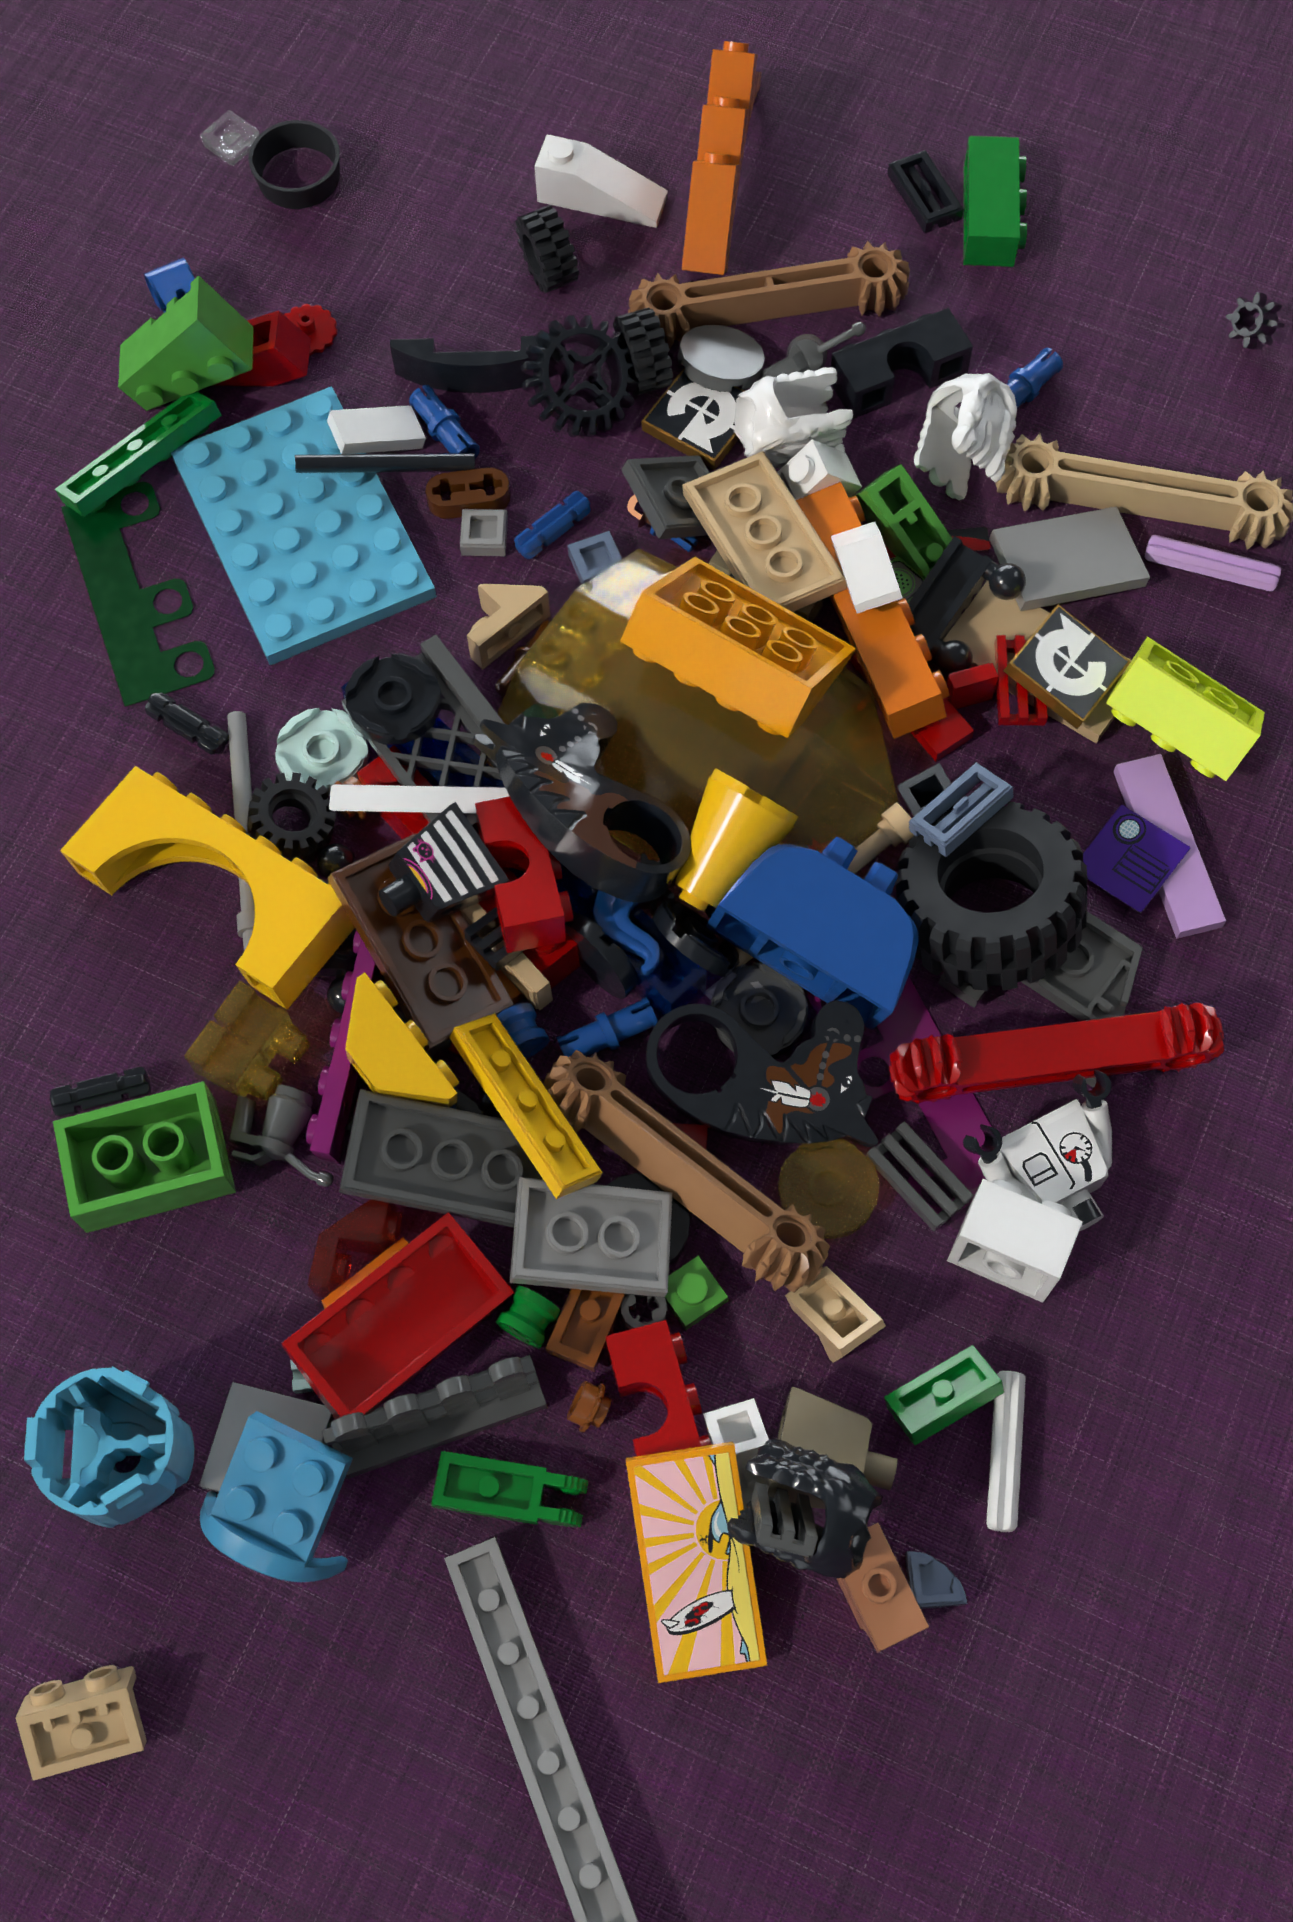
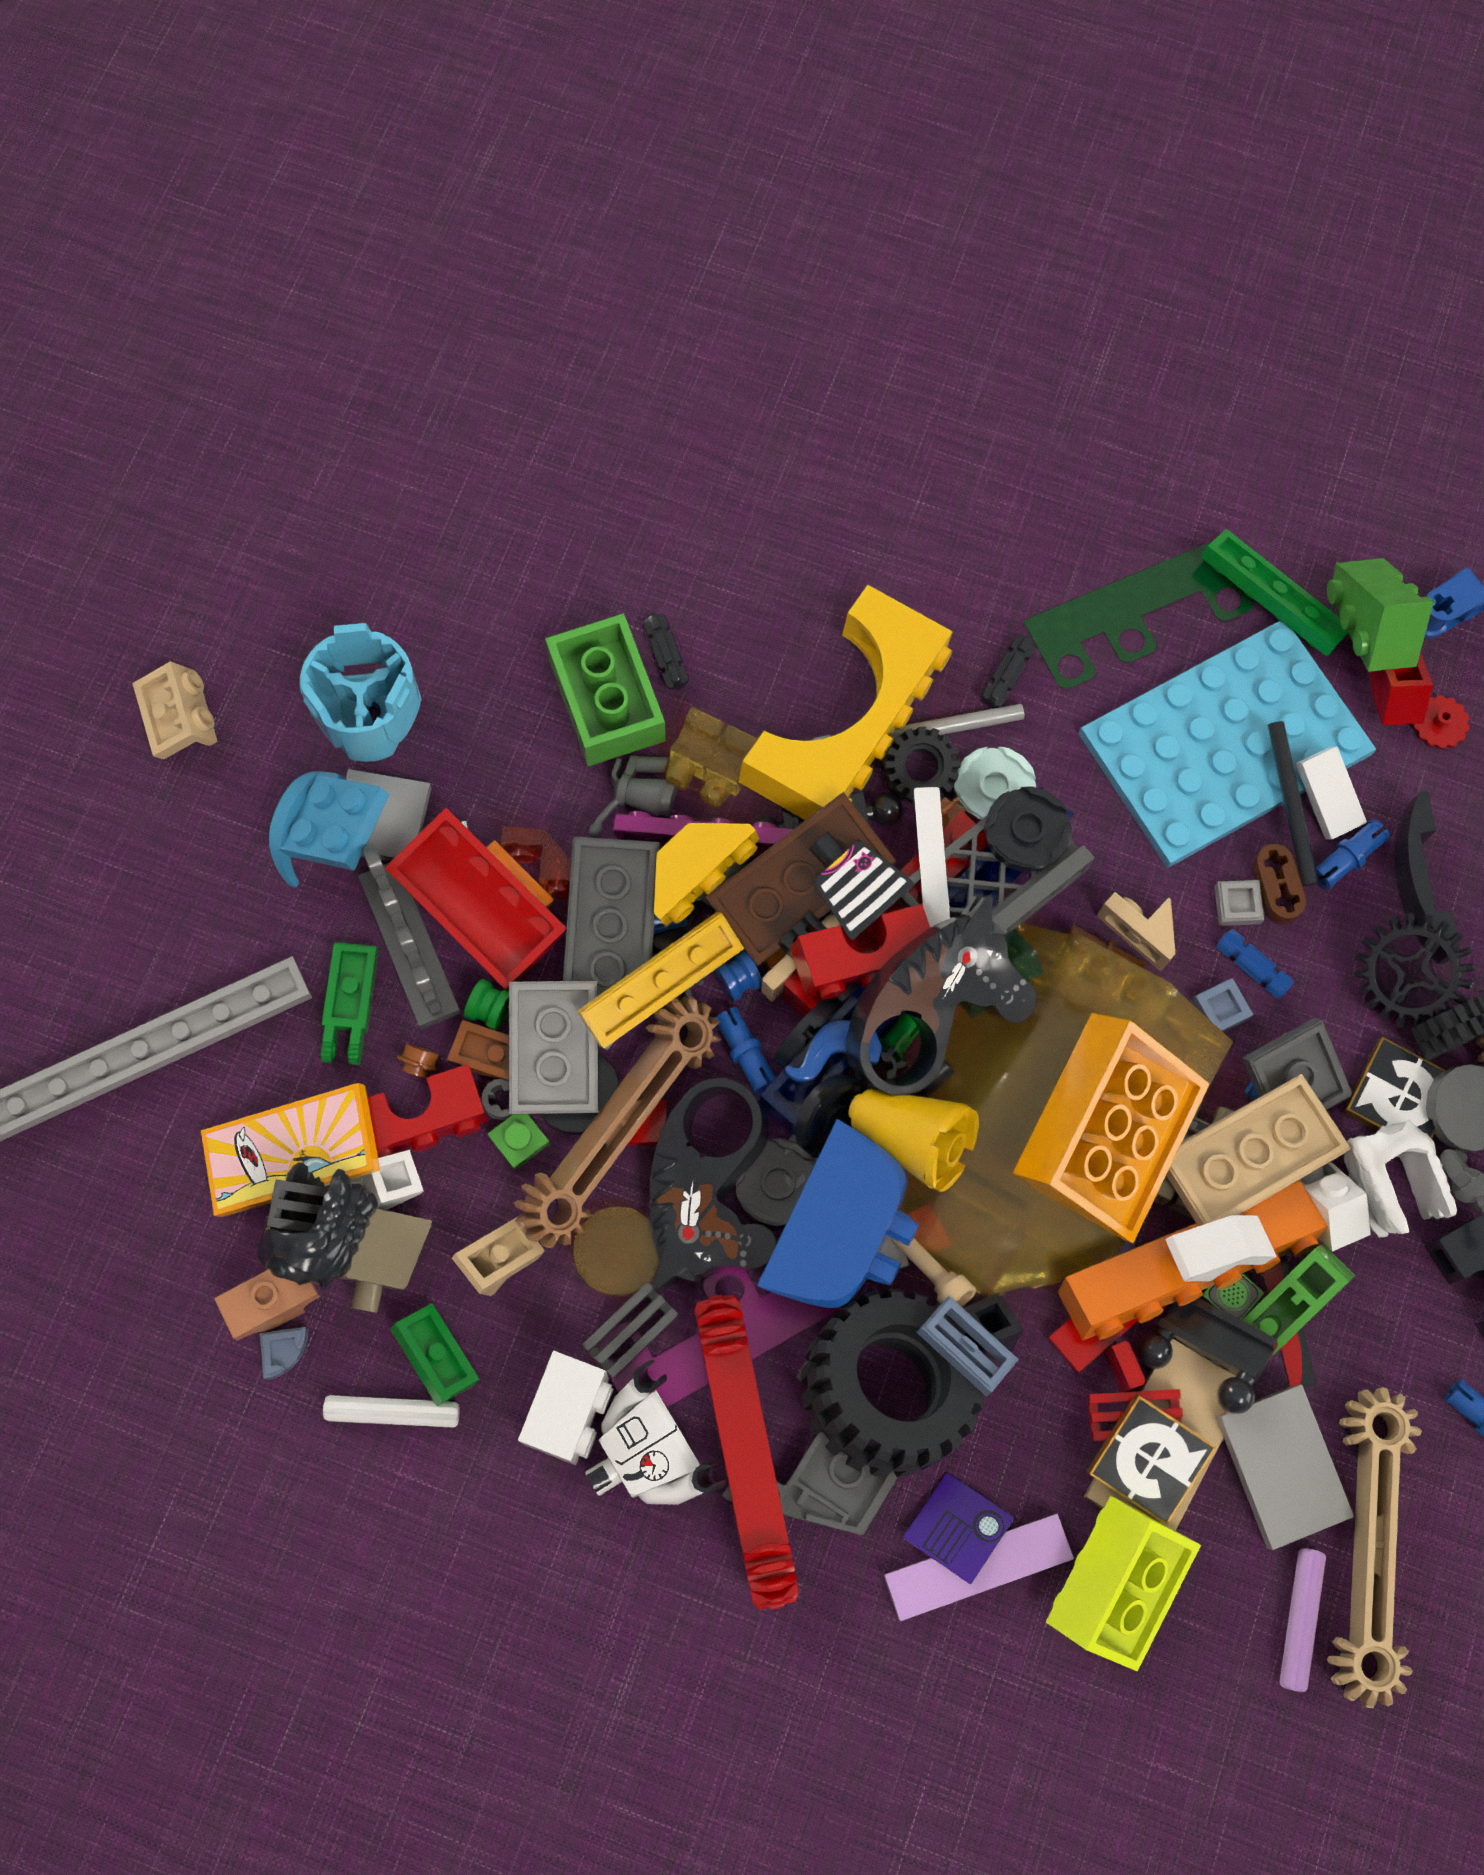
camera: 80 degrees right, 5 degrees up
(975, 431) = (1408, 1354): white piece -> none

